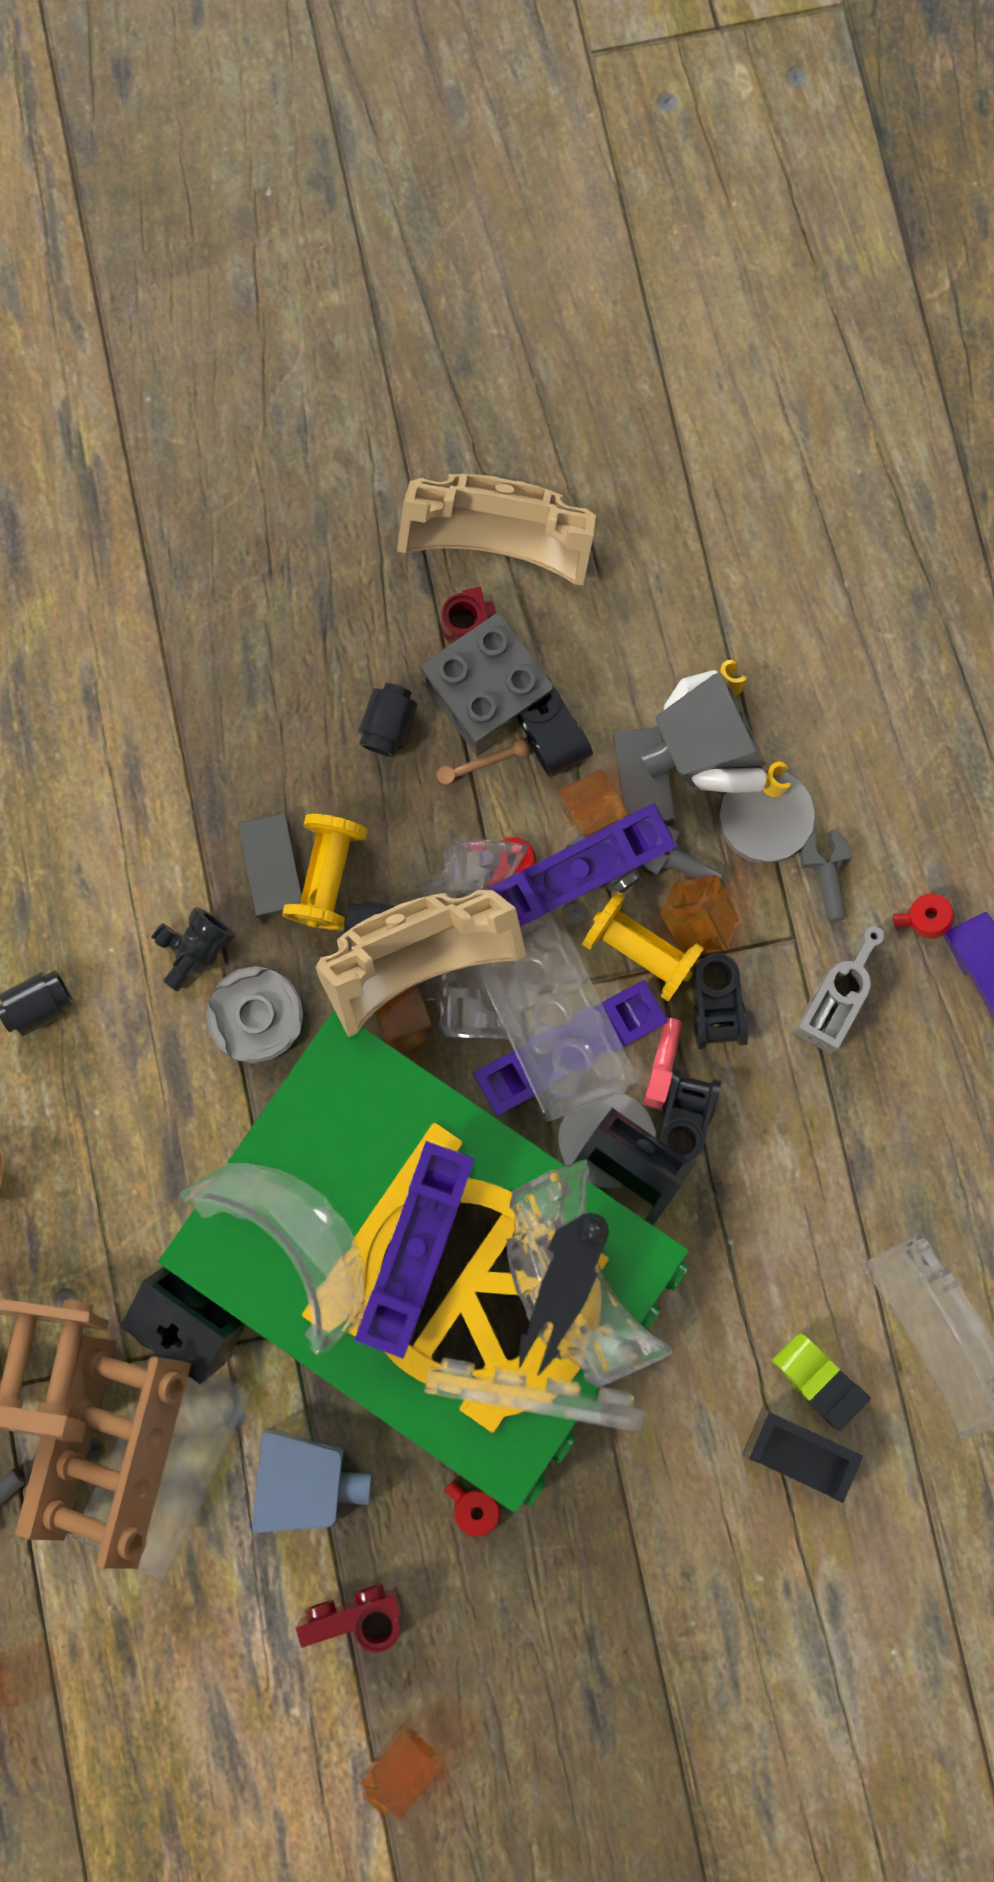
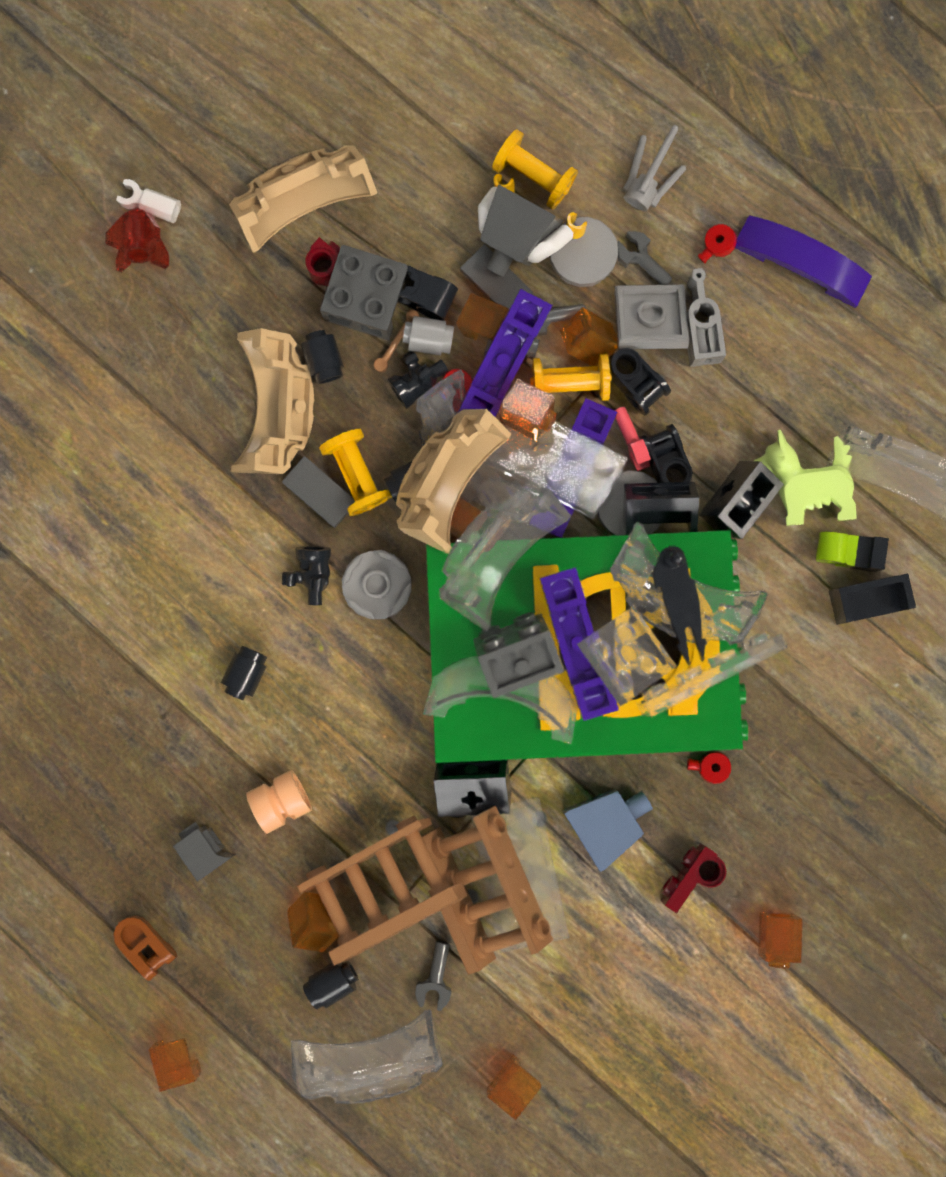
camera: 35 degrees left, 5 degrees up
(283, 448) = (137, 240): none -> clear red brick
(305, 739) = (283, 402): none -> tan windscreen
(331, 419) = (150, 201): none -> white bar
(333, 1207) = (517, 654): none -> dark grey bracket
(402, 1068) = (493, 546): none -> clear windscreen
(458, 1303) = (626, 655): none -> clear plate
(472, 821) = (417, 380): none -> black piece
(521, 782) = (428, 336): none -> light grey brick
(565, 944) = (528, 410): none -> clear orange brick
(734, 1225) = (741, 498): none -> black brick
(765, 650) = (534, 169): none -> yellow hose
(787, 944) = (651, 317): none -> light grey tile
(824, 1272) = (811, 487): none -> yellowish green animal
(882, 796) = (642, 191): none -> light grey plant

